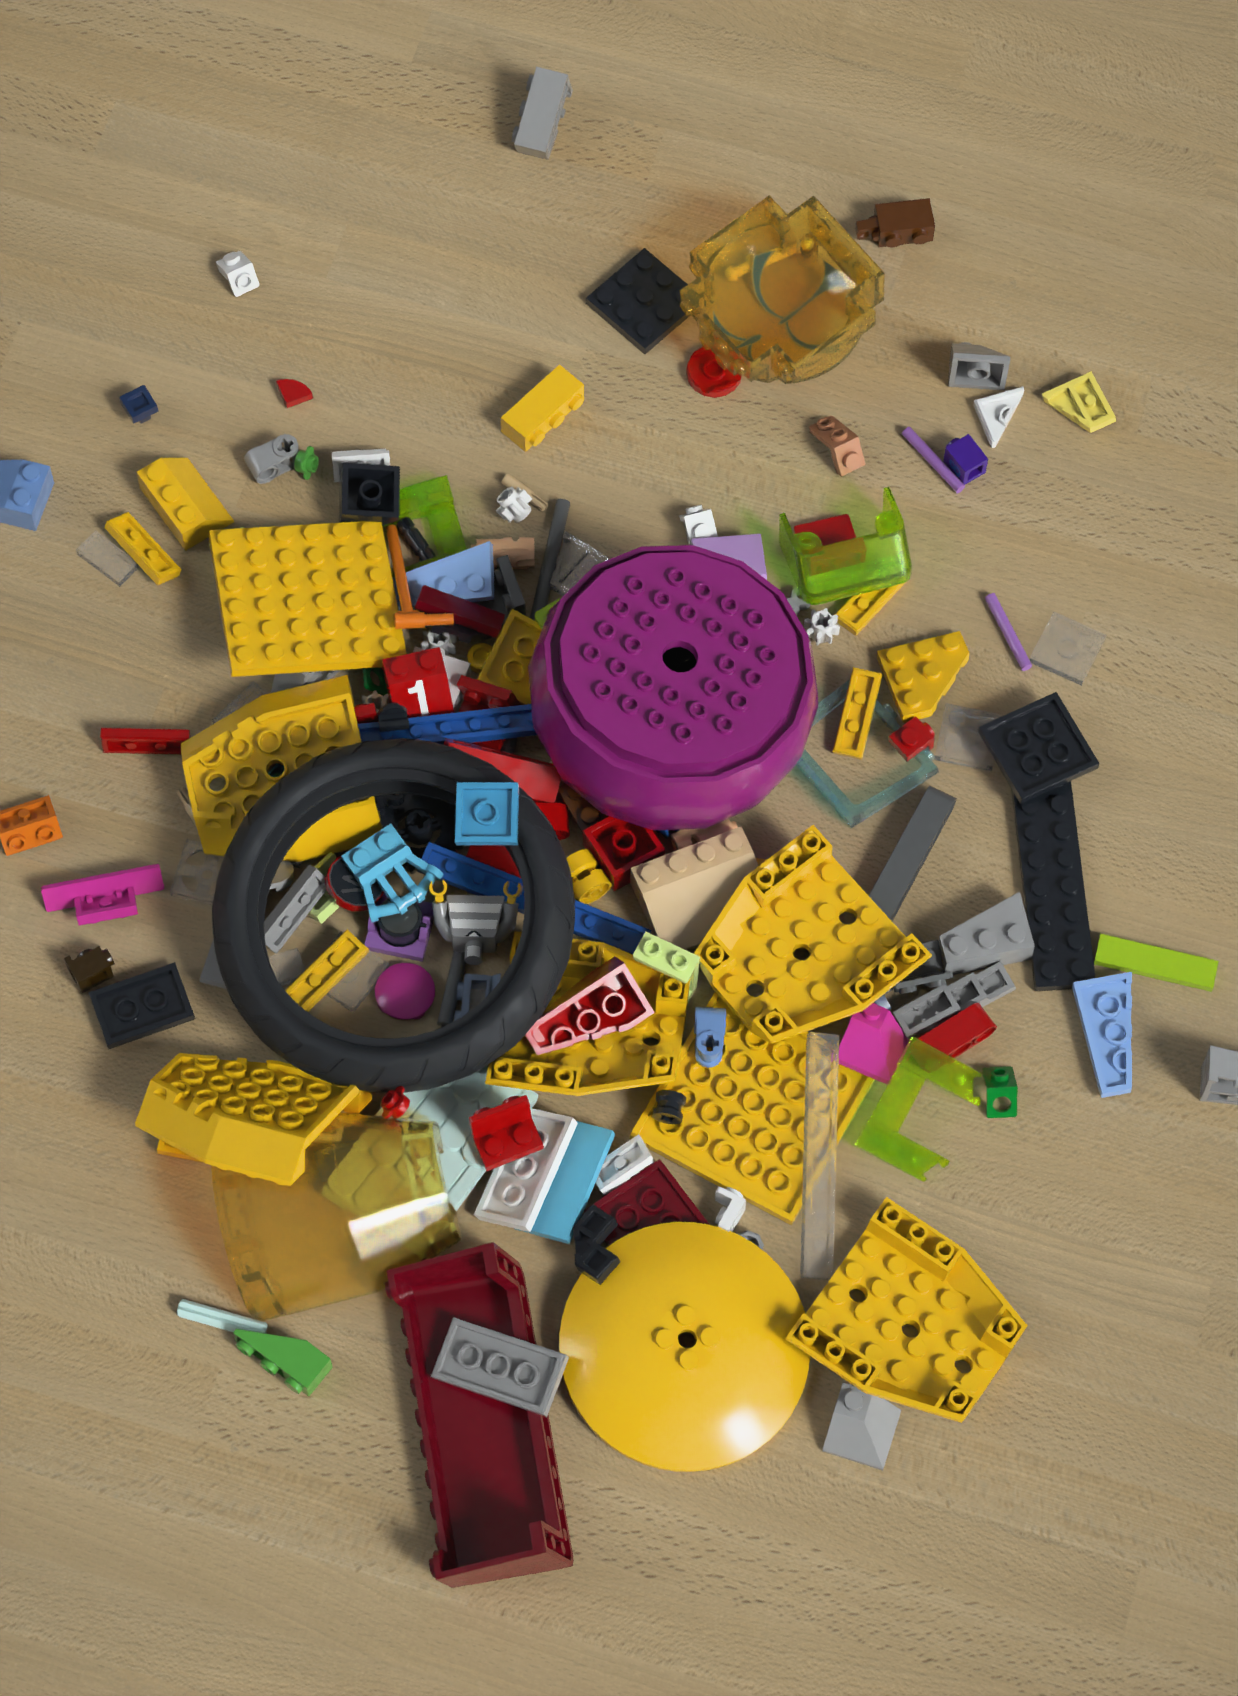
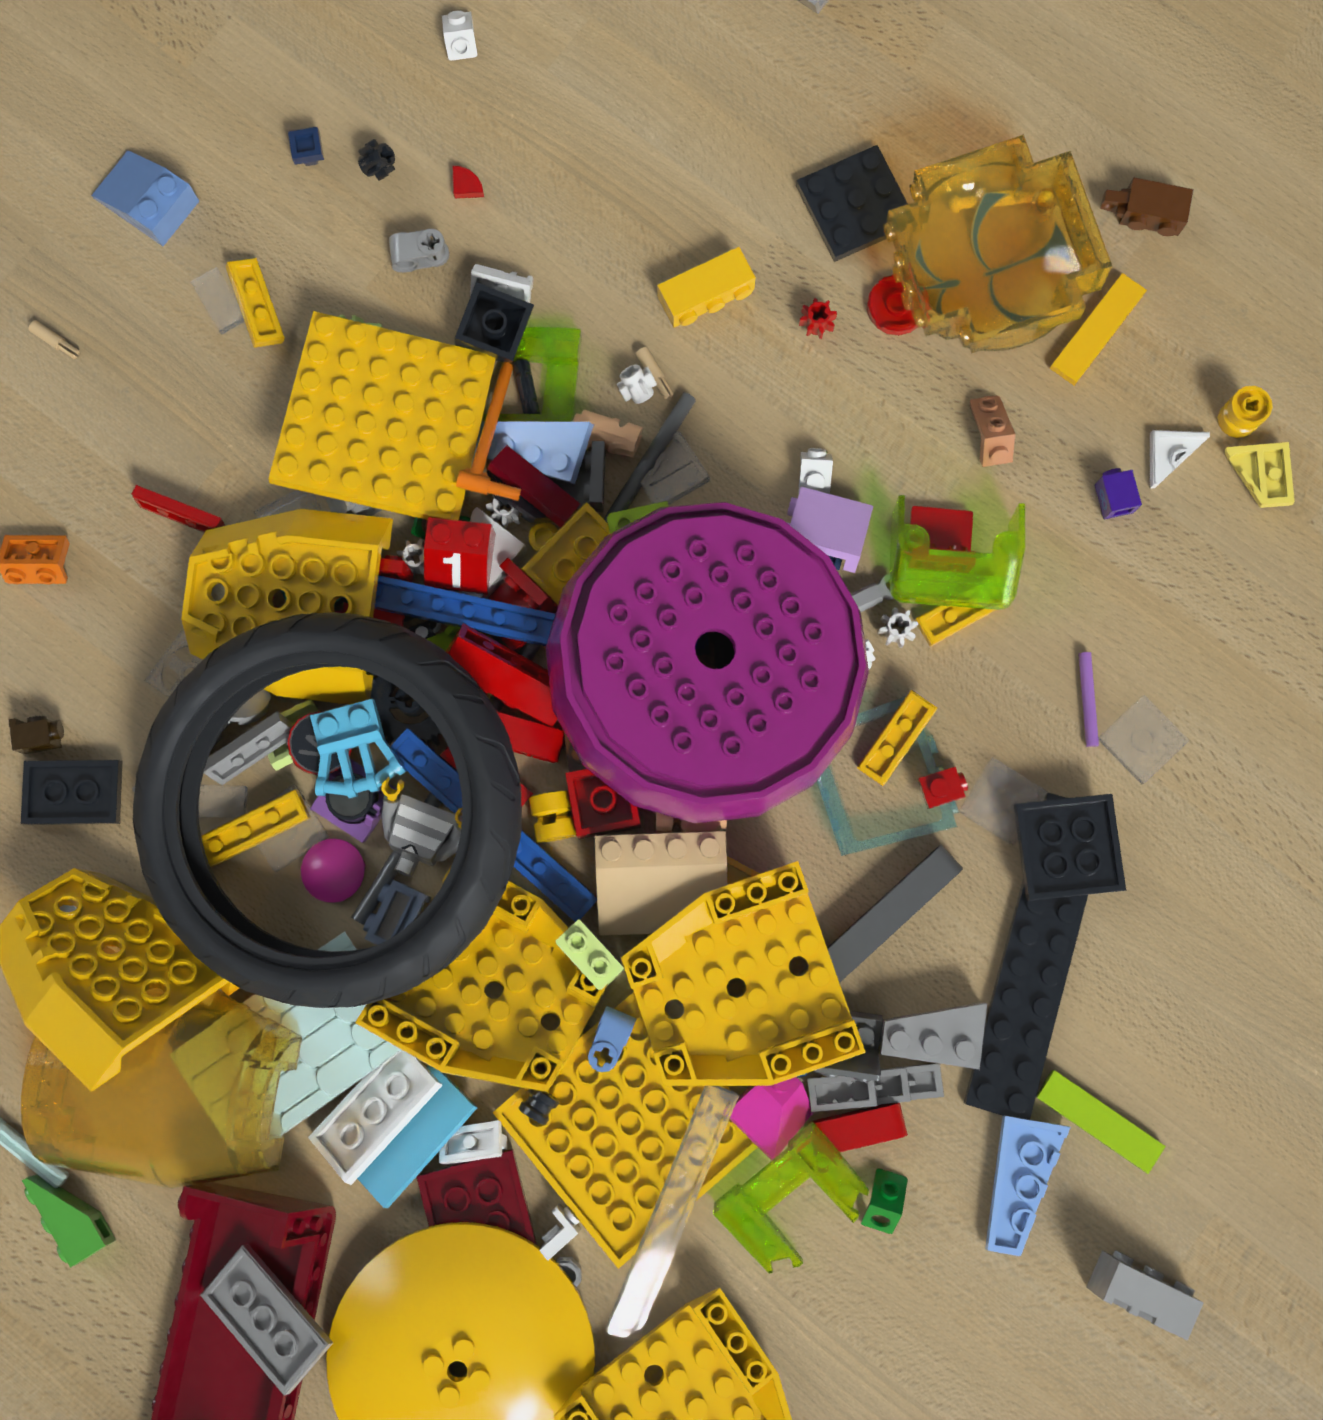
camera: 25 degrees right, 15 degrees up
(103, 895) = (78, 664): dark pink bracket -> none
(182, 500) = (313, 263): yellow slope -> none
(207, 396) = (376, 159): none -> black gear
(306, 462) = (449, 265): bright green plate -> none
(393, 718) = (417, 584): black plate -> none
(395, 1103) = (255, 1013): red plate -> none
(487, 813) = (443, 755): dark azure plate -> none
(505, 1132) = (363, 1082): red bracket -> none
(588, 1235) = (398, 1239): black tile -> none
(595, 1006) = (504, 971): red wedge -> none
(650, 402) = (813, 312): none -> red gear
(895, 336) = (1098, 329): none -> yellow tile
(922, 672) = (982, 715): yellow plate -> none
(938, 465) = (1084, 481): medium lavender bar -> none
(977, 367) = (1170, 395): light grey slope -> none
(1045, 359) = (1245, 411): none -> yellow wheel

